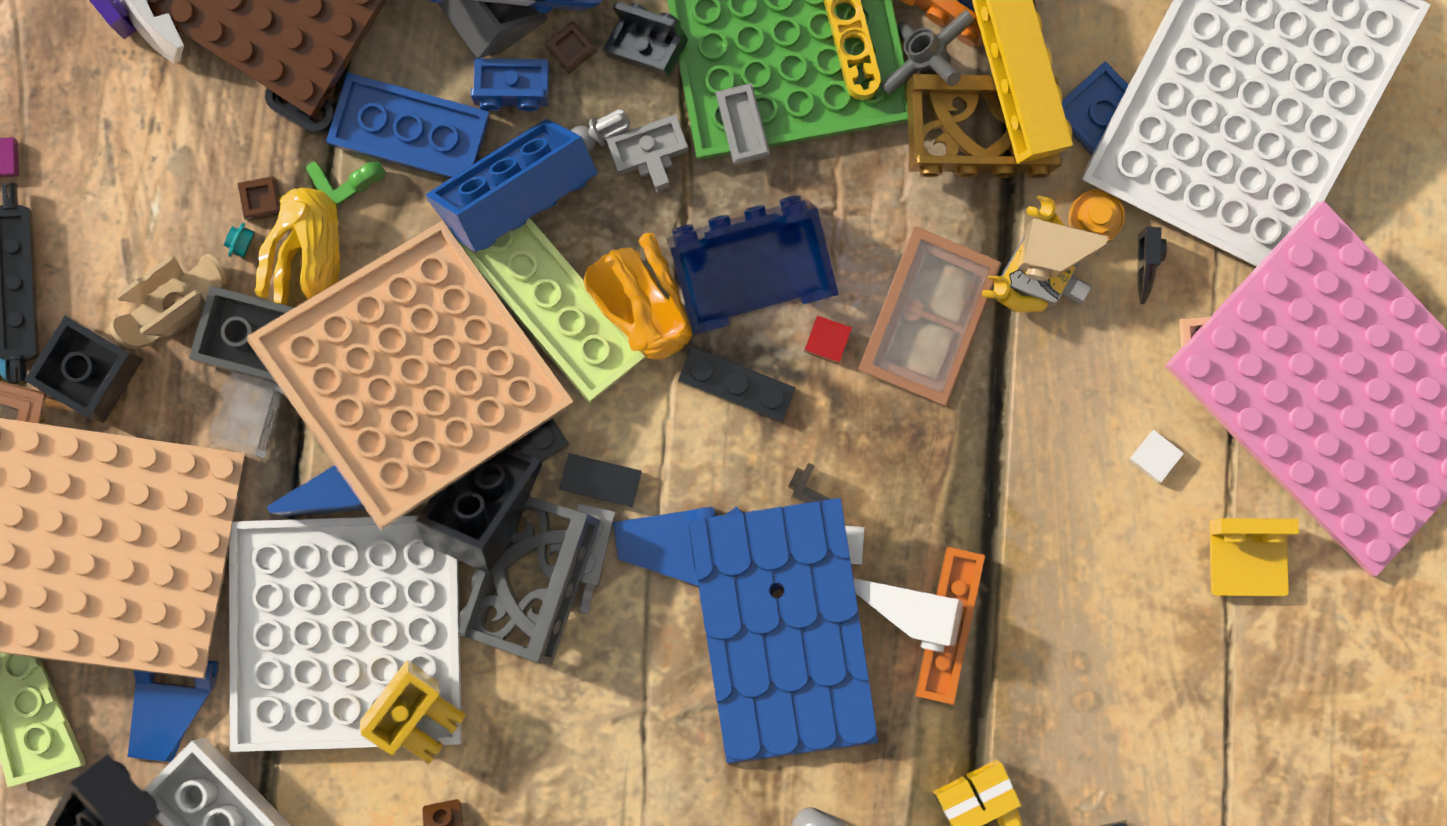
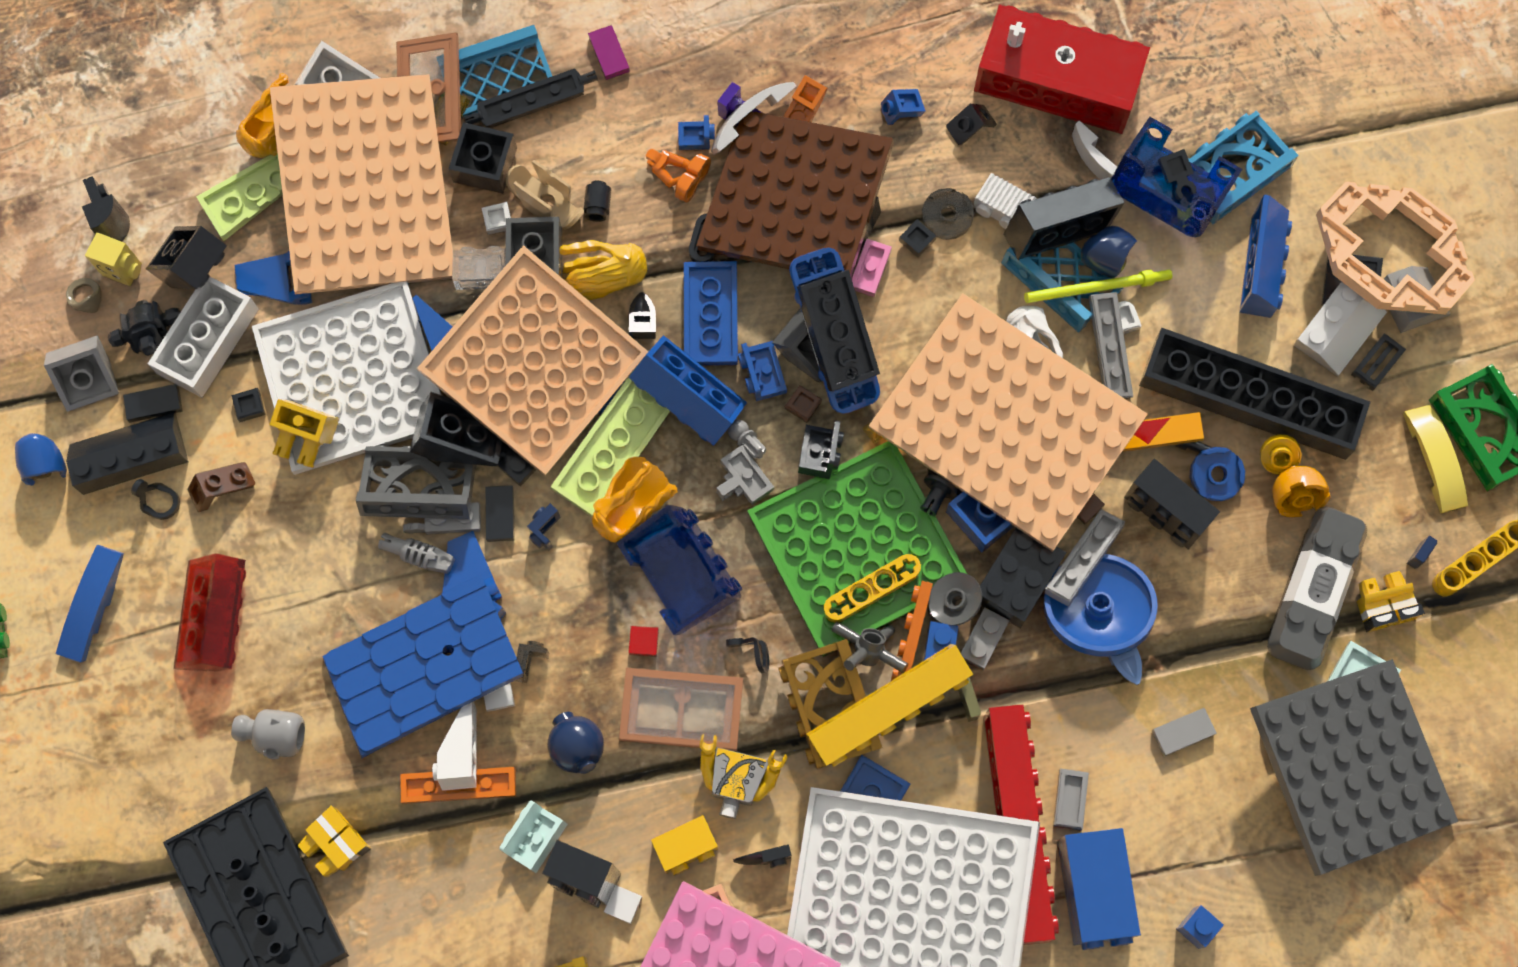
camera: 75 degrees right, 10 degrees down
(144, 74) = (696, 134): none -> blue bracket
(177, 376) = (495, 217): none -> white tile
(197, 233) = (597, 201): none -> black brick
(210, 106) = (686, 183): none -> orange piece
(239, 240) = (599, 228): teal plate -> none
(259, 198) = (634, 232): reddish brown tile -> none
(341, 783) = (248, 405): none -> black tile
(357, 181) = (662, 290): bright green piece -> none
(386, 219) = (642, 318): none -> plate
(624, 601) = (418, 553): none -> light grey hinge
(628, 424) = (542, 521): none -> dark blue bracket
(736, 384) = (593, 587): black plate -> none
(742, 124) = (779, 534): light grey tile -> none
(872, 195) = (737, 642): none -> black piece
(941, 460) = (575, 743): none -> dark blue brick
(1044, 545) = (533, 836): none -> light aqua bracket
(1055, 248) = (747, 777): tan slope -> none
(1097, 213) = (788, 809): light orange plate -> none
(1107, 357) = (685, 845): none -> yellow brick
(1129, 487) = (581, 872): none -> black brick

